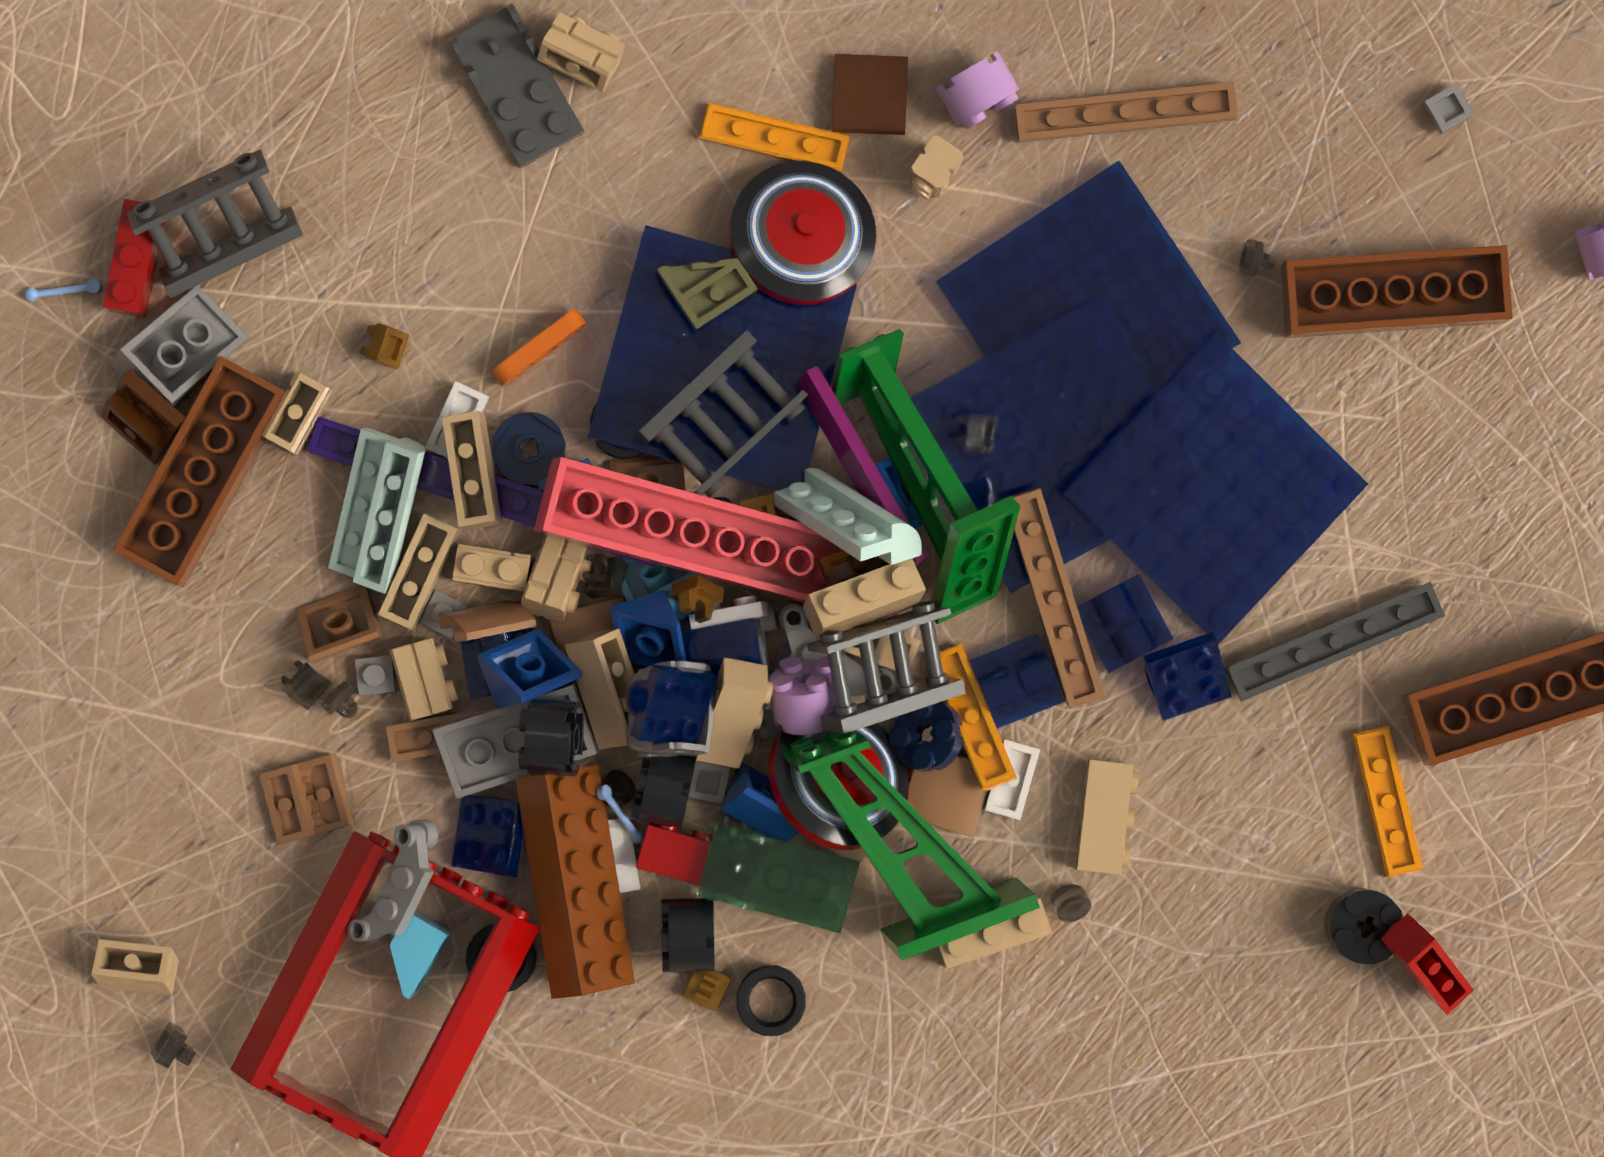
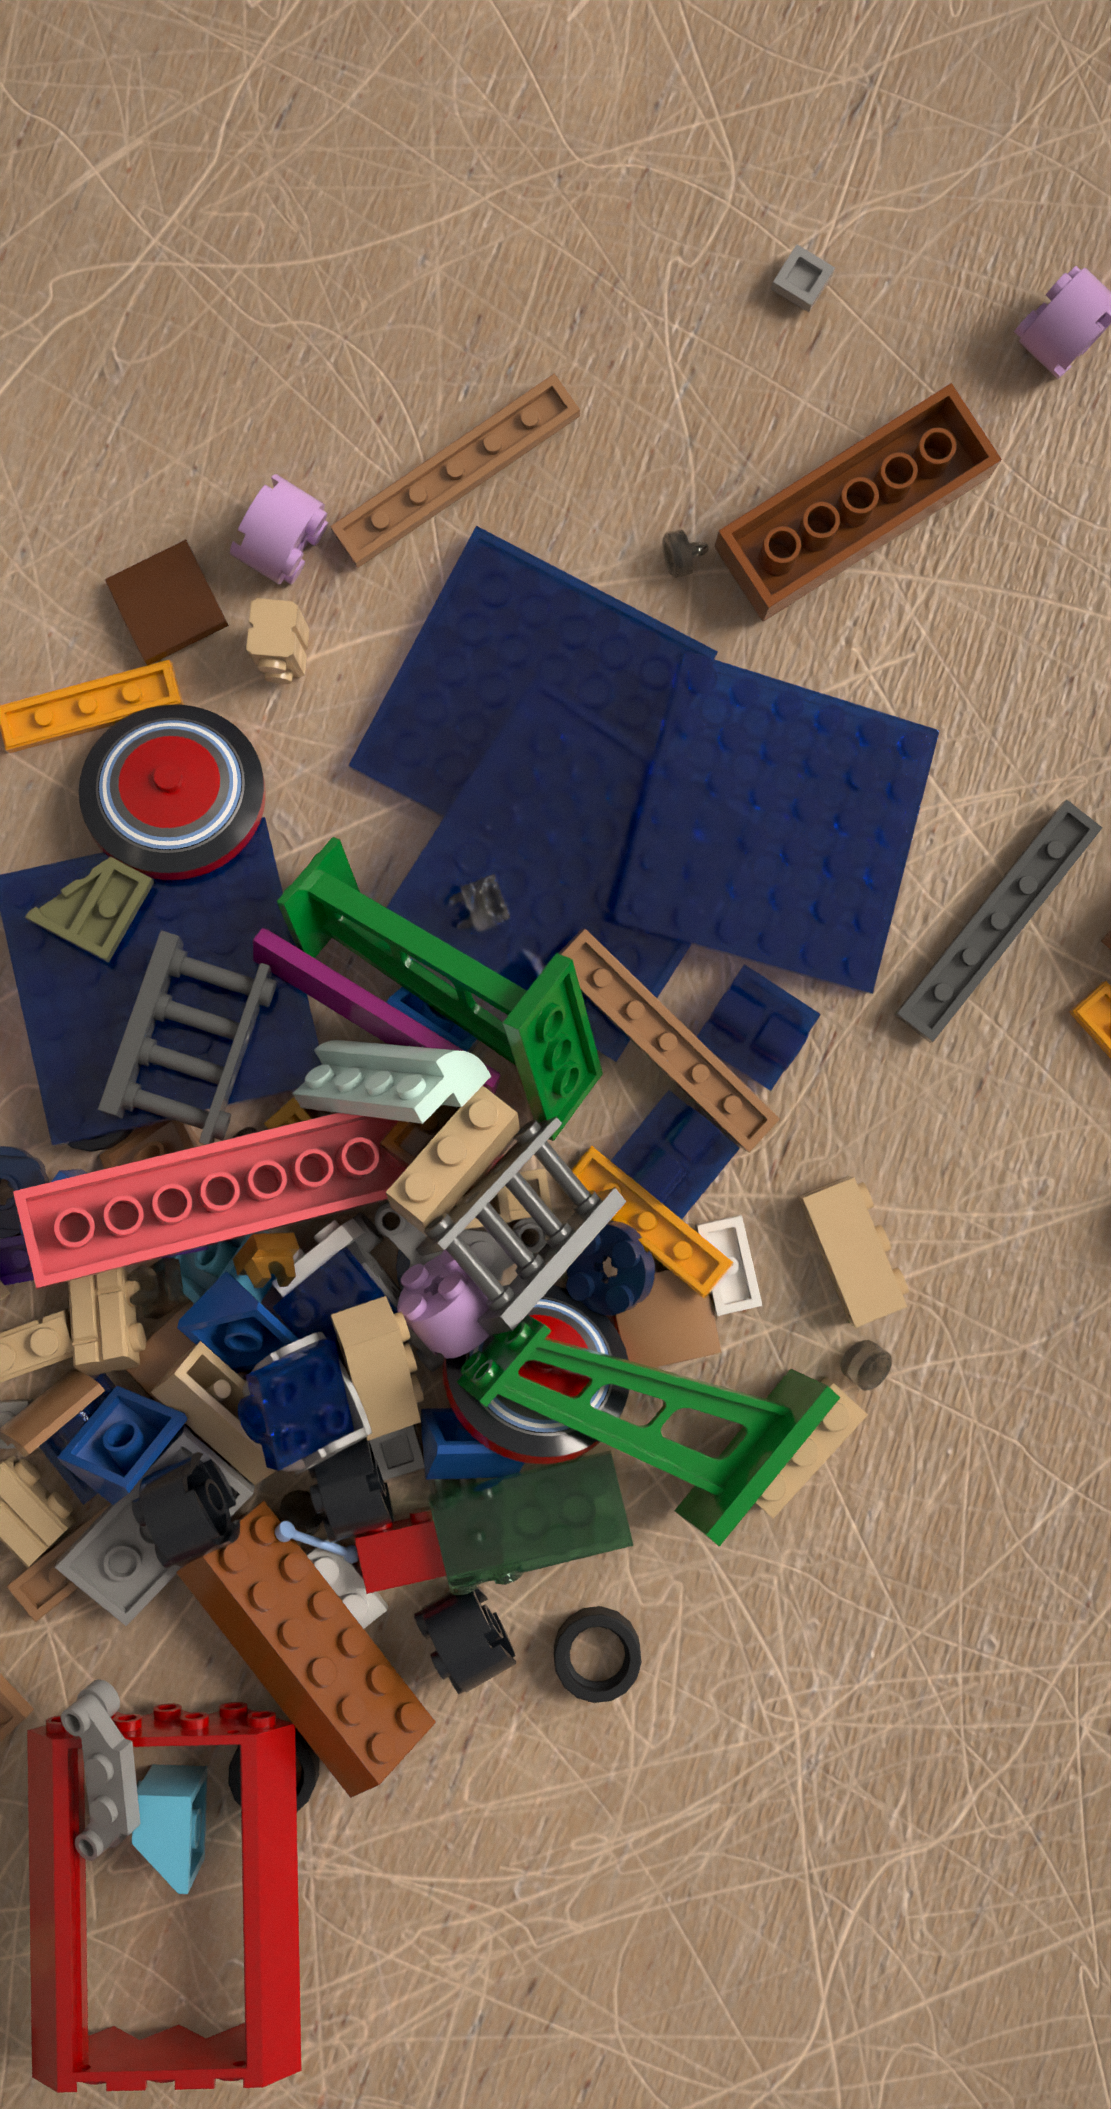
camera: 25 degrees left, 0 degrees up
(488, 835) = (185, 1646): clear blue plate -> none
(707, 988) = (523, 1680): pearl gold tile -> none
(1187, 676) = (858, 1047): clear blue plate -> none

